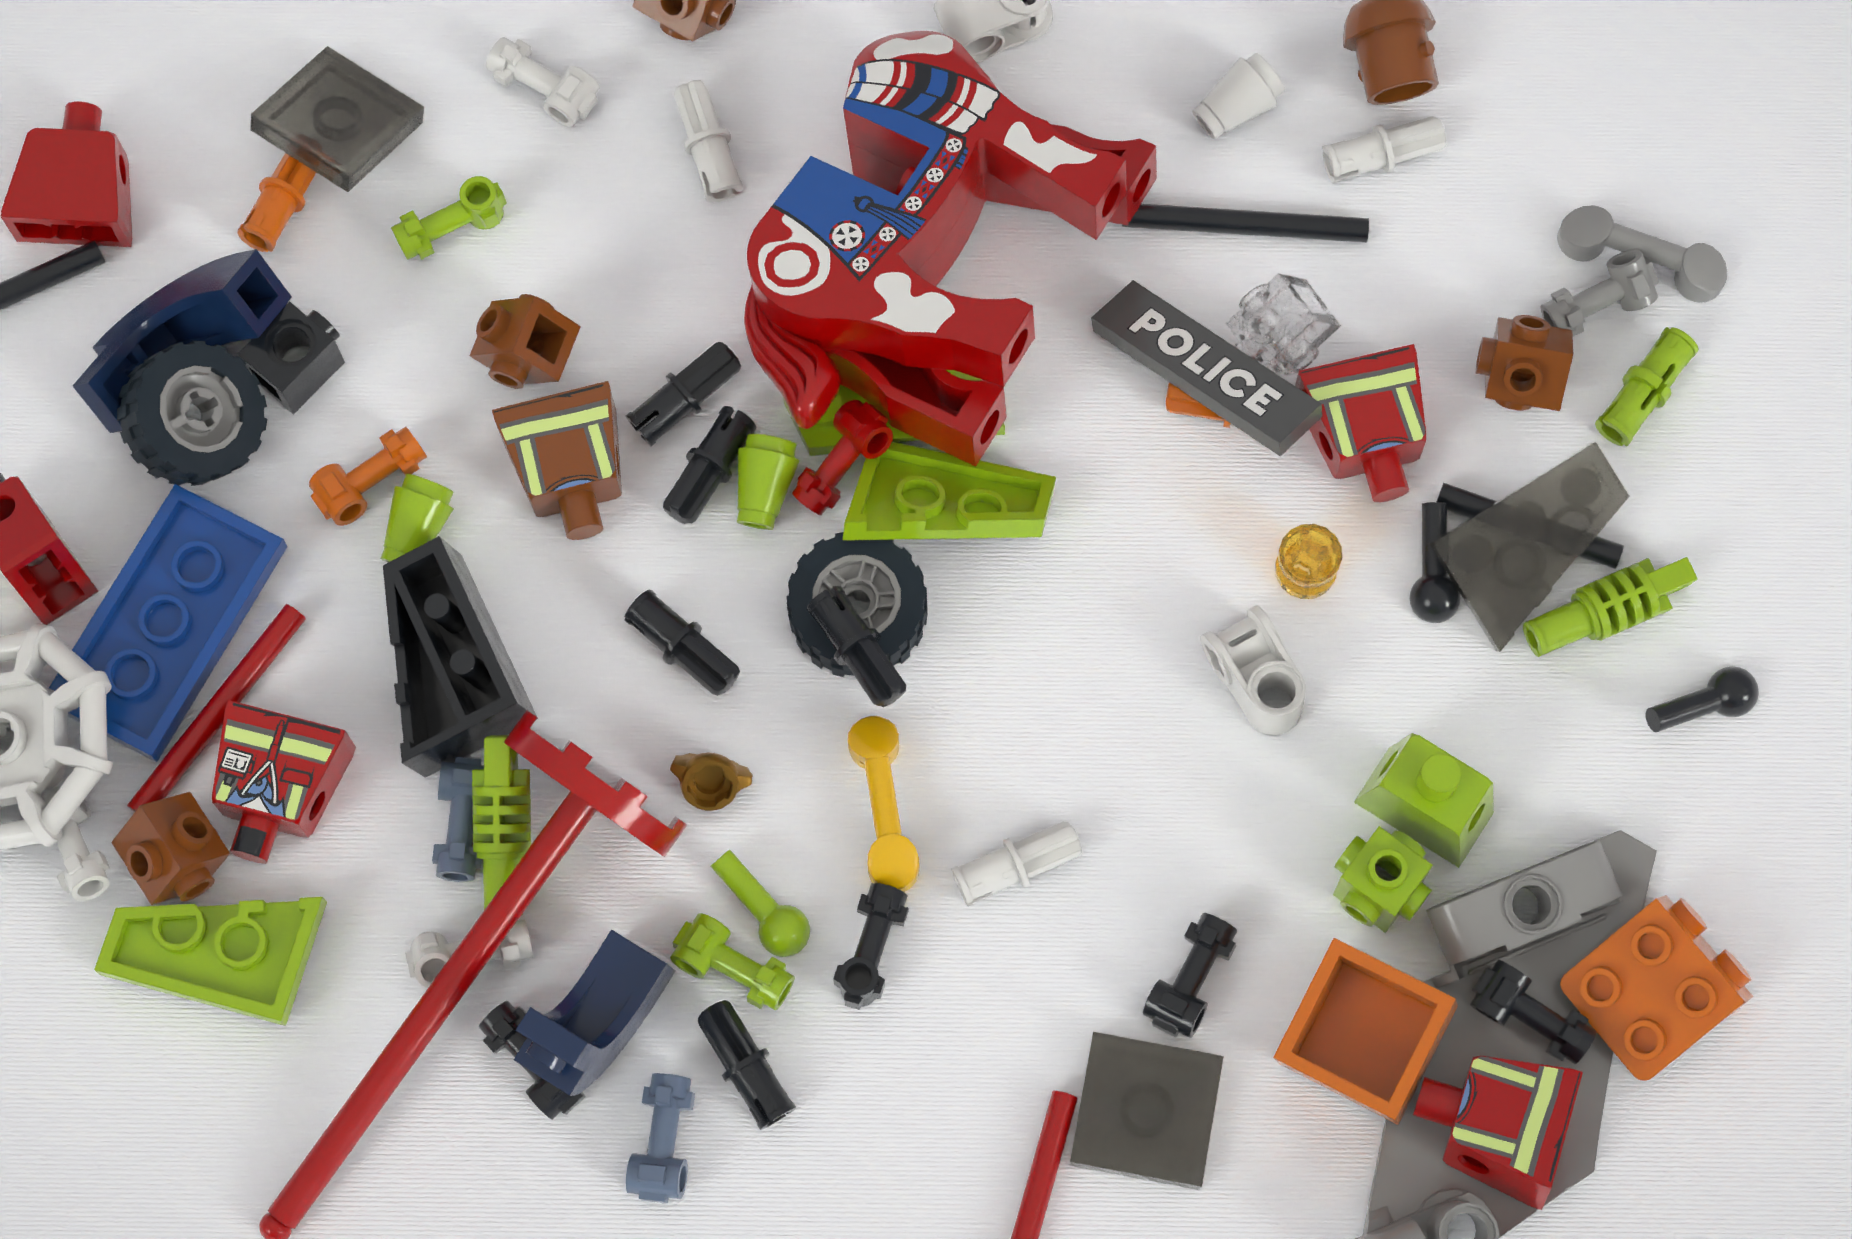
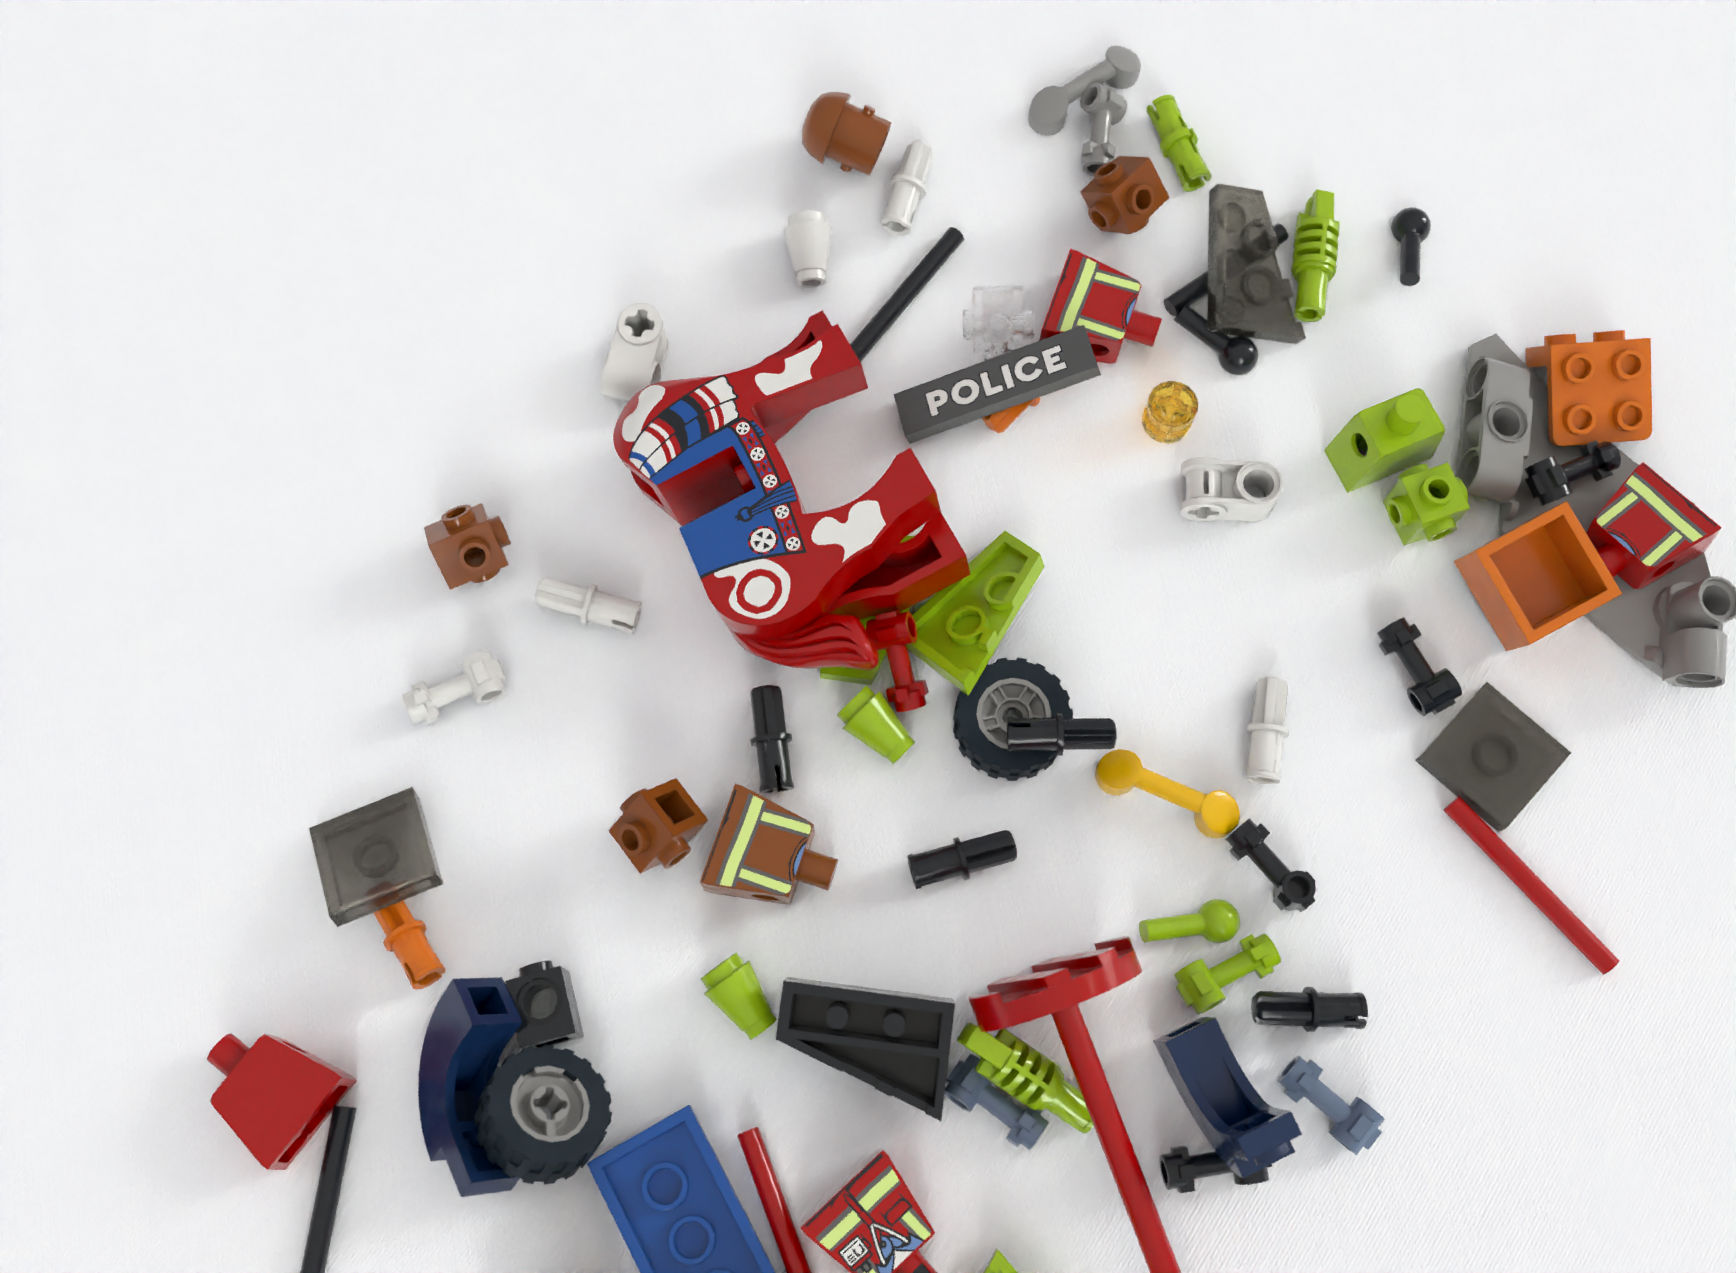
camera: 60 degrees left, 0 degrees up
(340, 493) = (677, 1039): orange bar -> none
(431, 952) = (1097, 1192): white bar -> none
(479, 204) = (522, 797): lime bar -> none
(708, 465) = (839, 757): black axle -> none
(709, 779) = (1077, 901): pearl gold piece -> none

